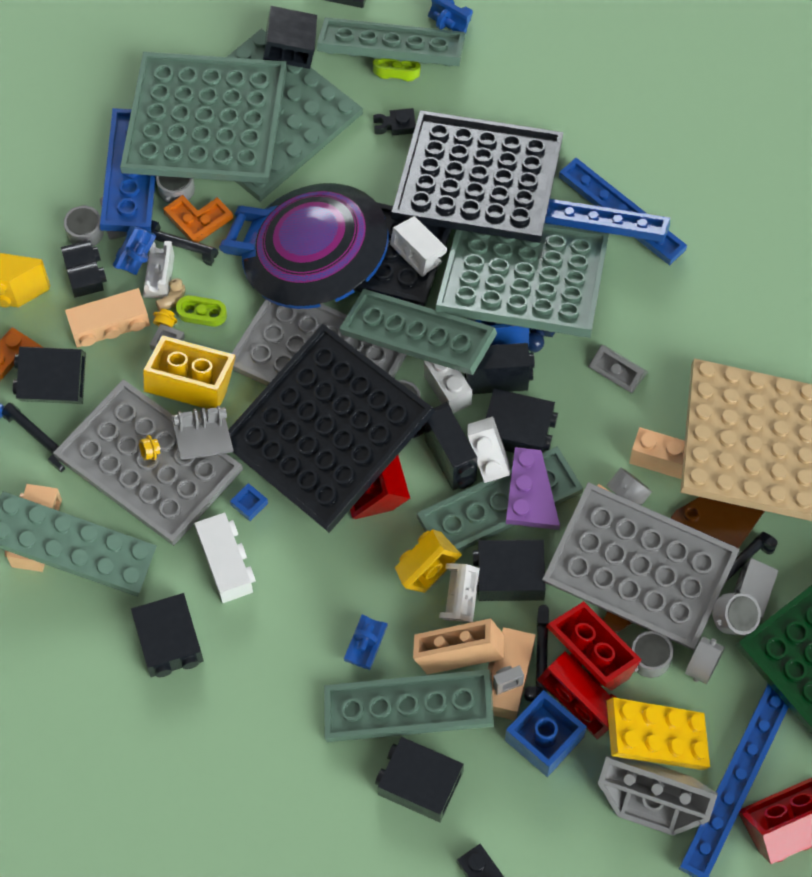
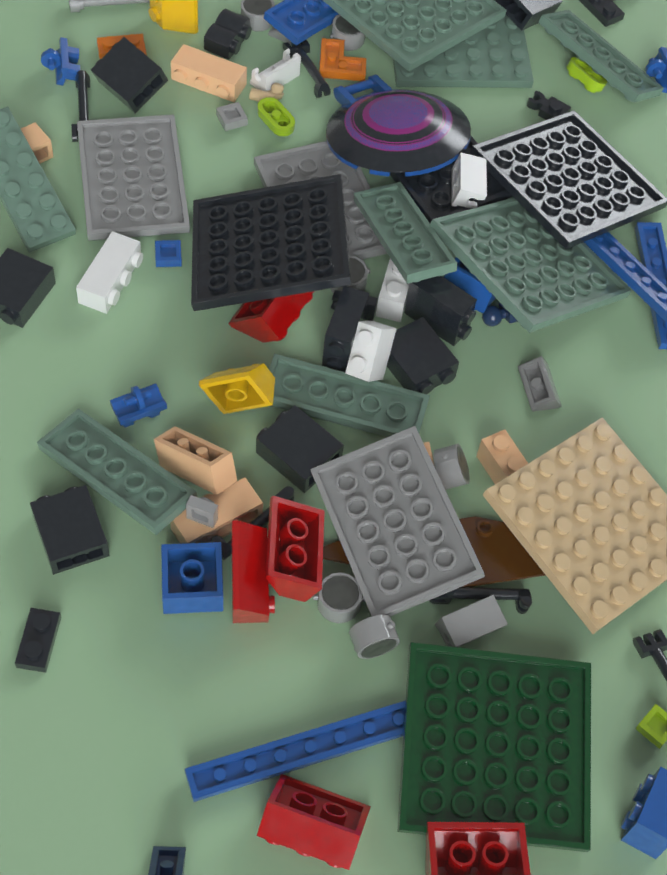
camera: 35 degrees right, 5 degrees down
(134, 250) = (271, 44): blue hips -> none
(149, 448) = (138, 164): yellow plate -> none
(164, 317) = (246, 101): yellow plate -> none
(188, 373) = (219, 142): yellow slope -> none
(202, 433) = (184, 182): light grey hinge -> none
(461, 593) = (243, 429): white hinge -> none
(530, 492) = (370, 407): medium lavender wing -> none
(655, 795) = (224, 695): light grey wedge -> none
(657, 734) = (273, 653): yellow plate -> none
(736, 613) = (432, 620): piece -> none

